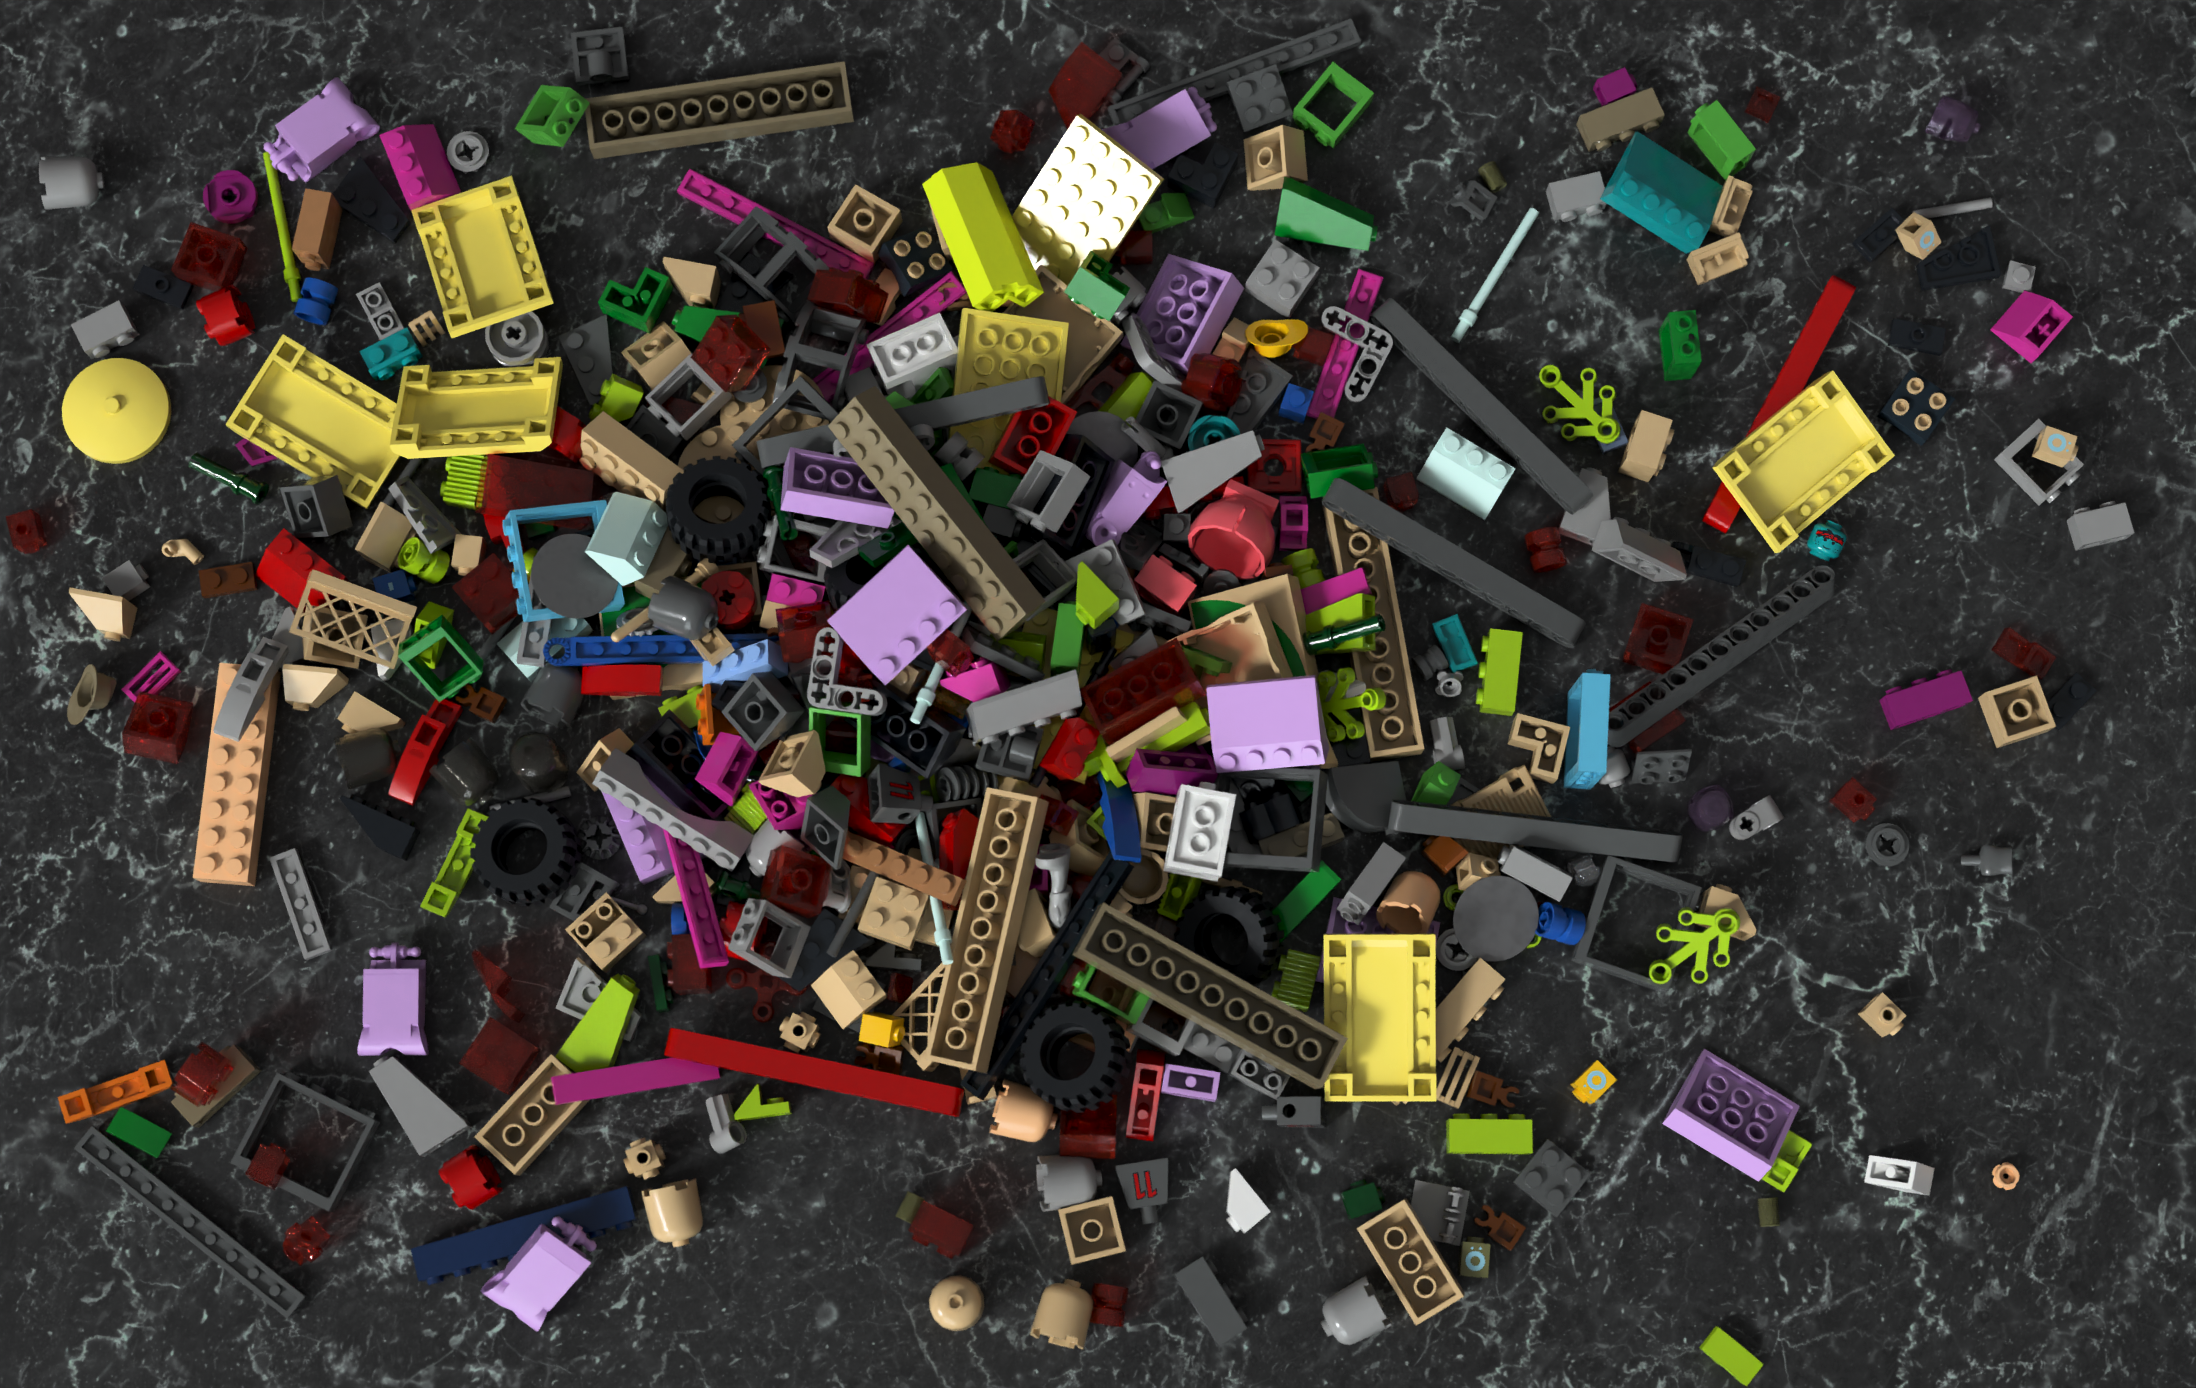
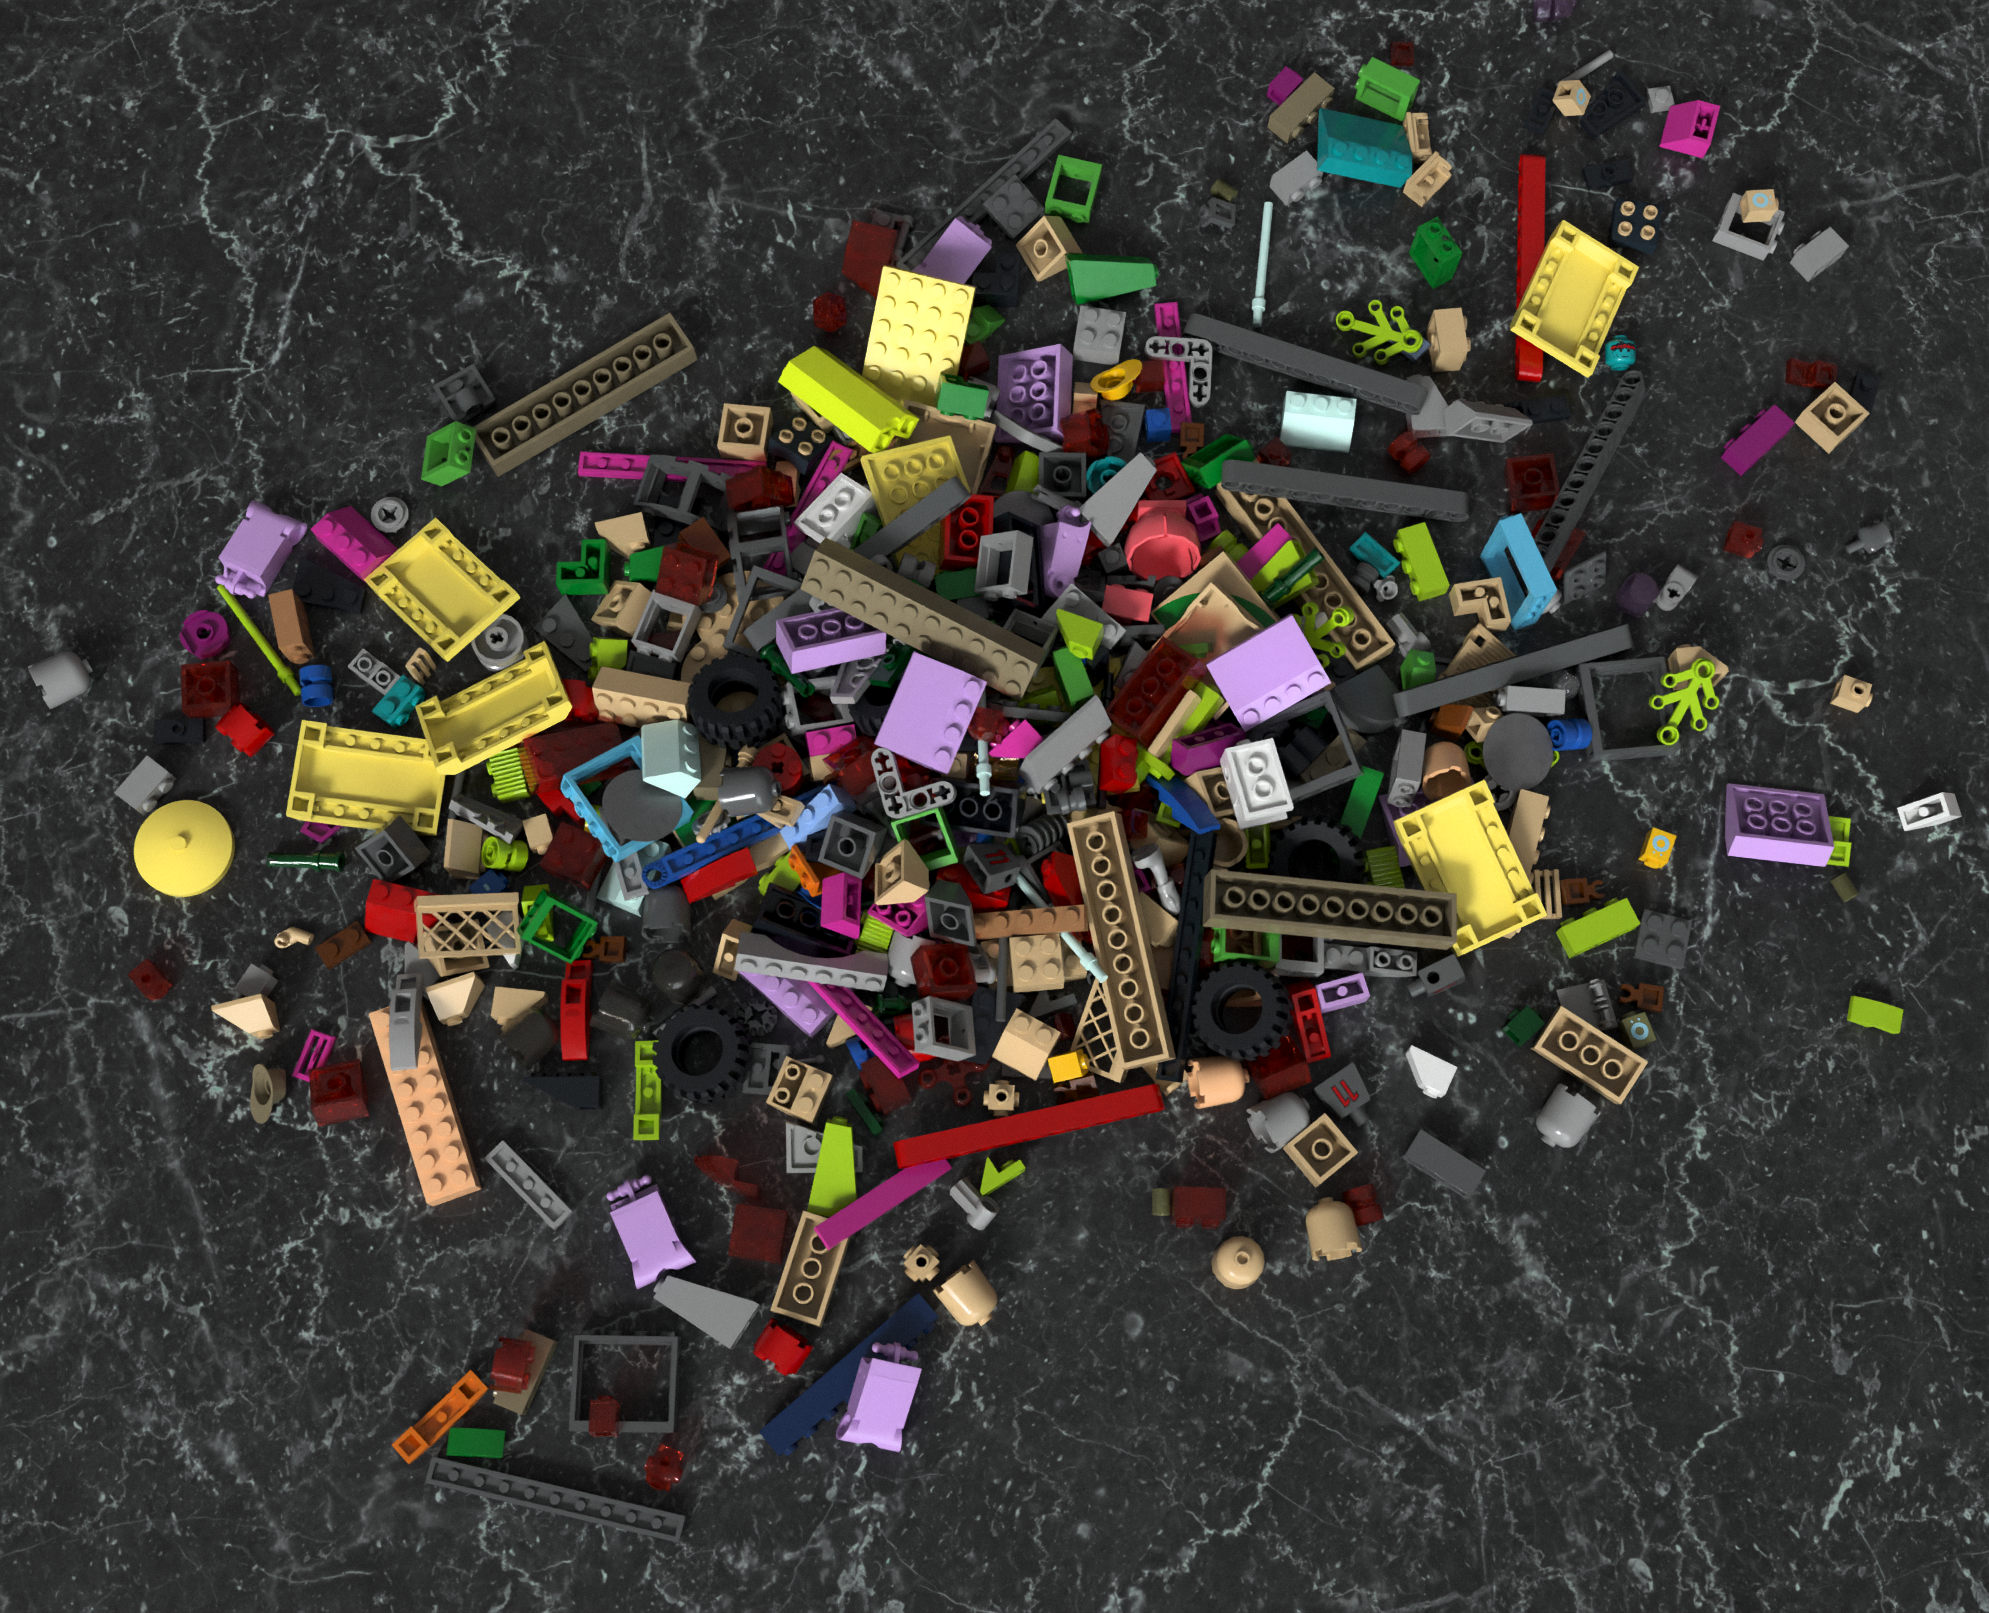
camera: 25 degrees left, 5 degrees down
(1003, 766) = (1071, 800): none -> dark grey wheel

